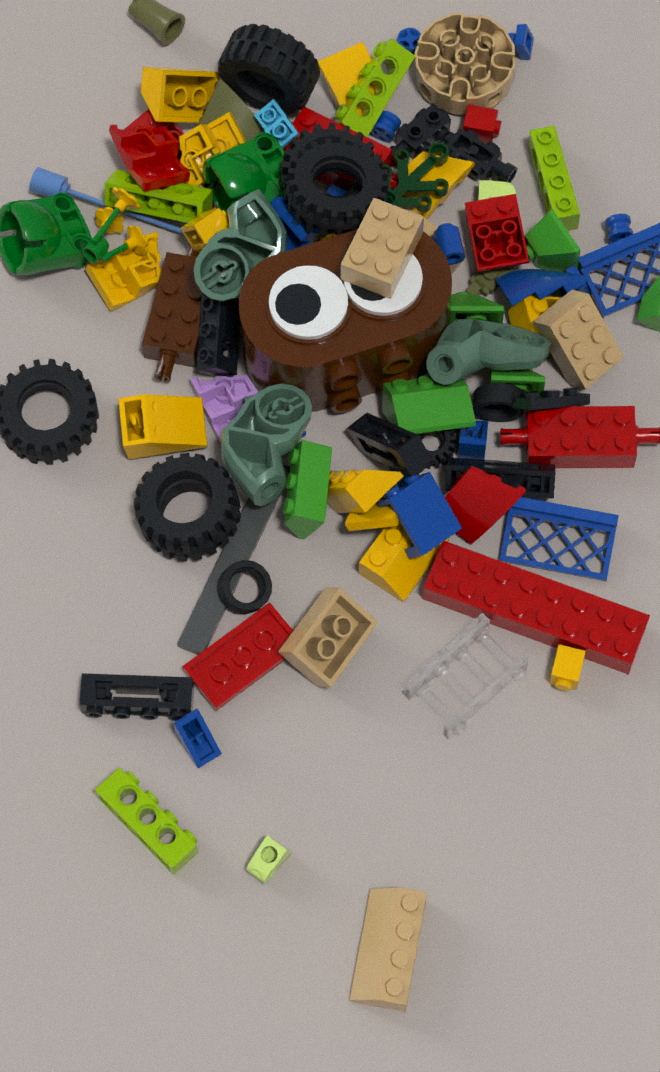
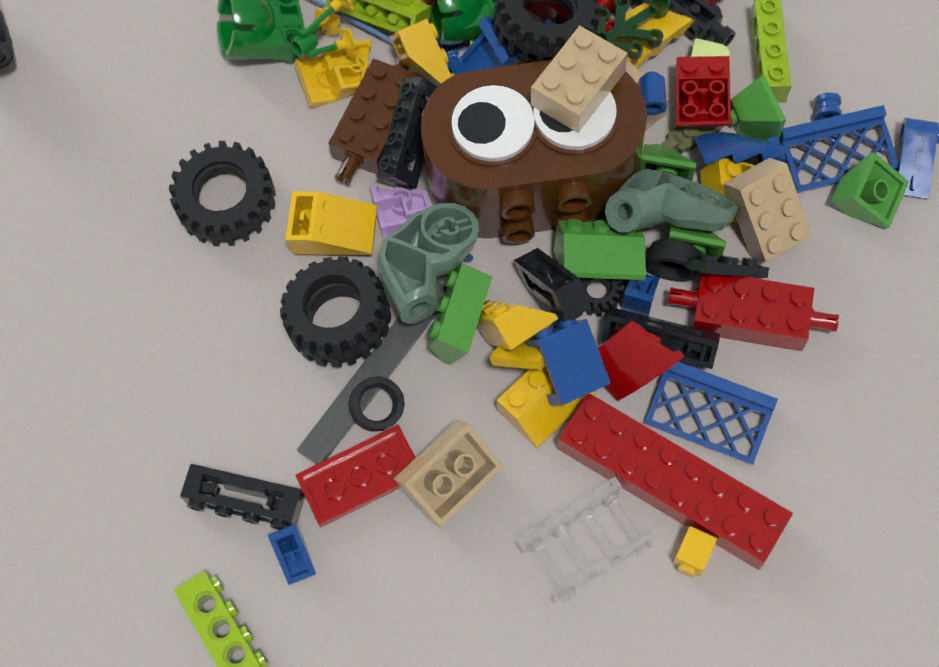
camera: 15 degrees right, 0 degrees up
(234, 251) = (454, 48): sand green piece -> none

